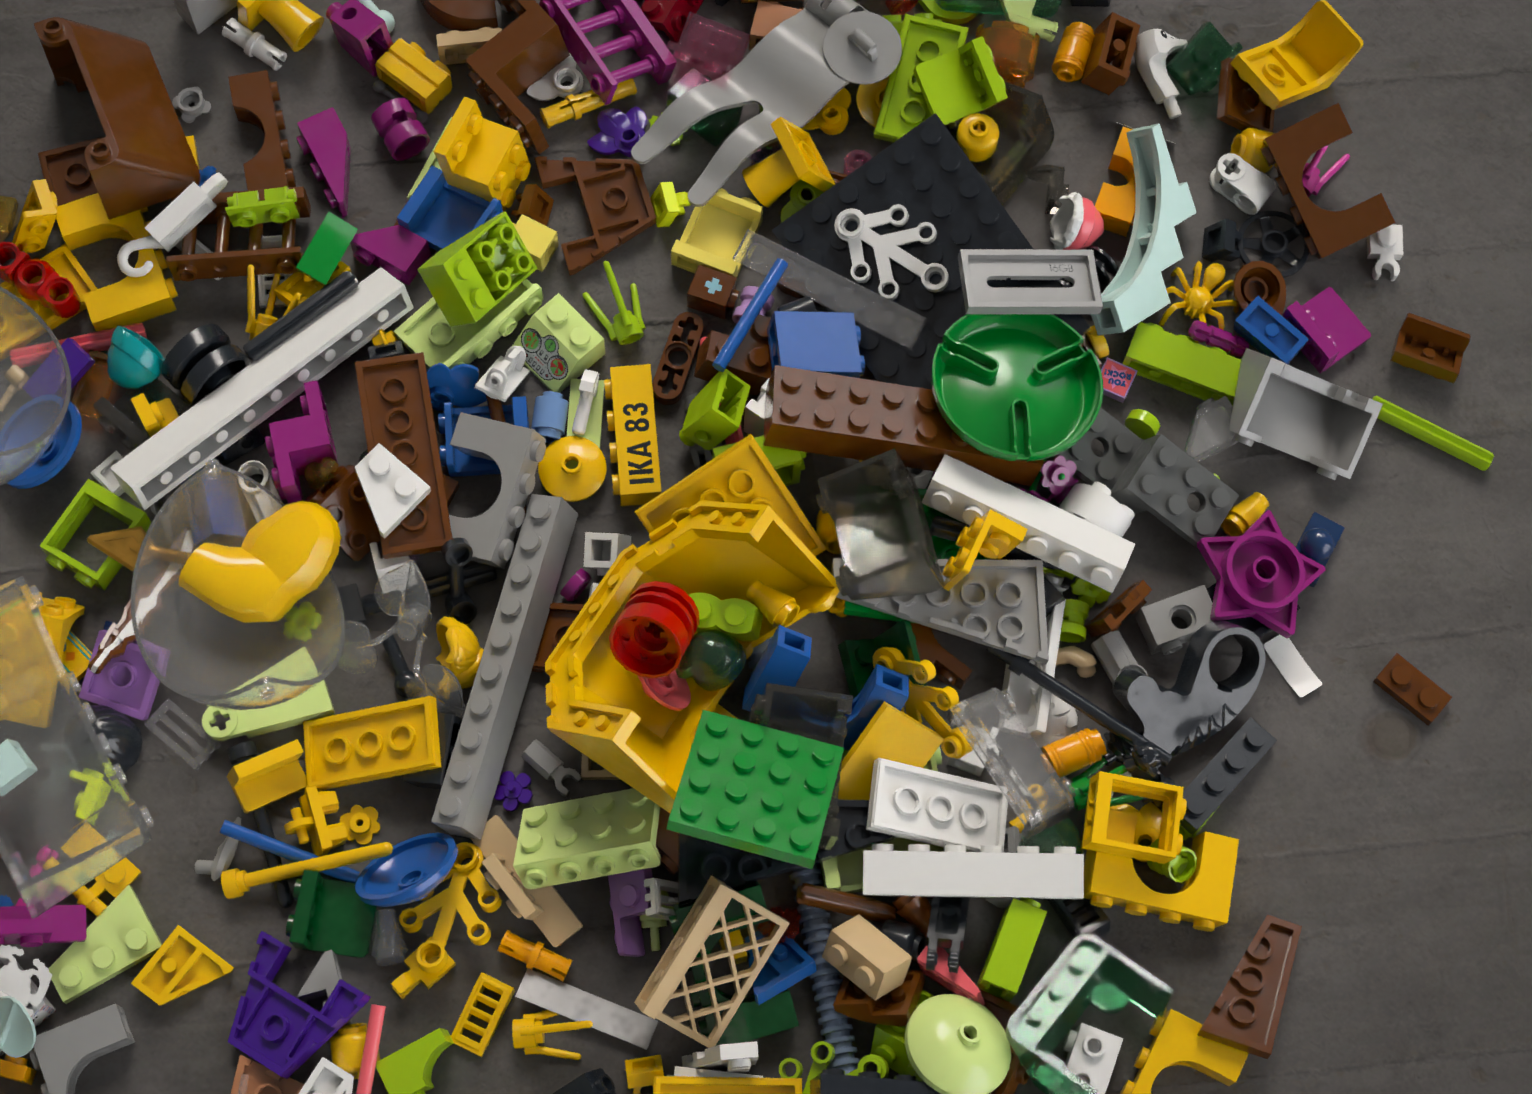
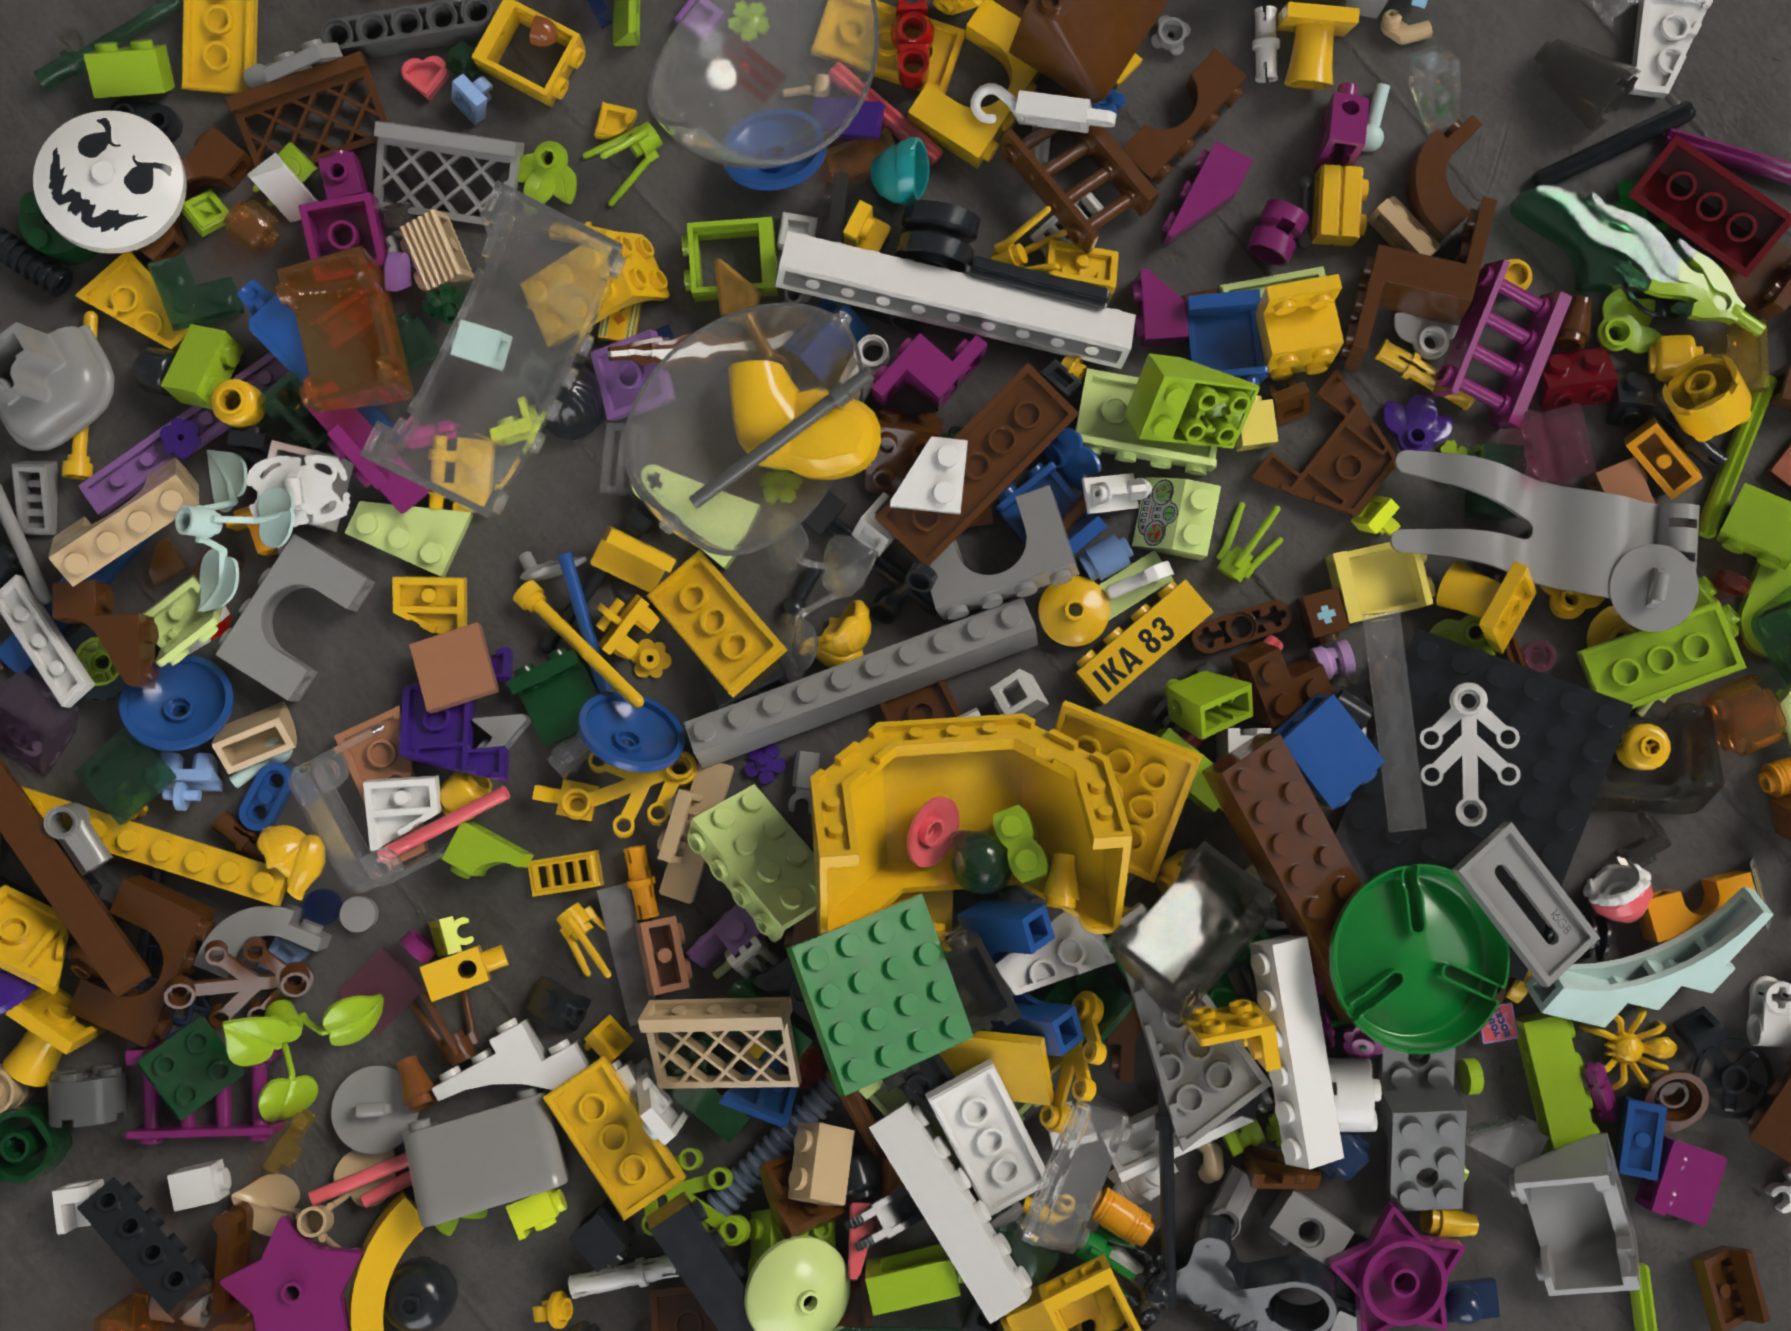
camera: 60 degrees right, 15 degrees up
(244, 982) = (454, 668): none -> nougat tile
(268, 509) = (838, 395): none -> dark grey bar
(278, 207) = (1122, 186): lime hinge -> none
(319, 473) = (915, 405): clear yellow arm -> none
(326, 248) = (1115, 258): green slope -> none
(576, 585) = (973, 689): magenta tile -> none
(606, 975) = (663, 955): none -> nougat brick
(654, 629) = (963, 802): red wheel -> none
(750, 314) = (1317, 672): blue bar -> none
(832, 649) = (1067, 955): none -> white wing
(961, 82) = (1685, 700): lime bracket -> none
(1144, 557) = (1354, 1159): none -> dark blue head

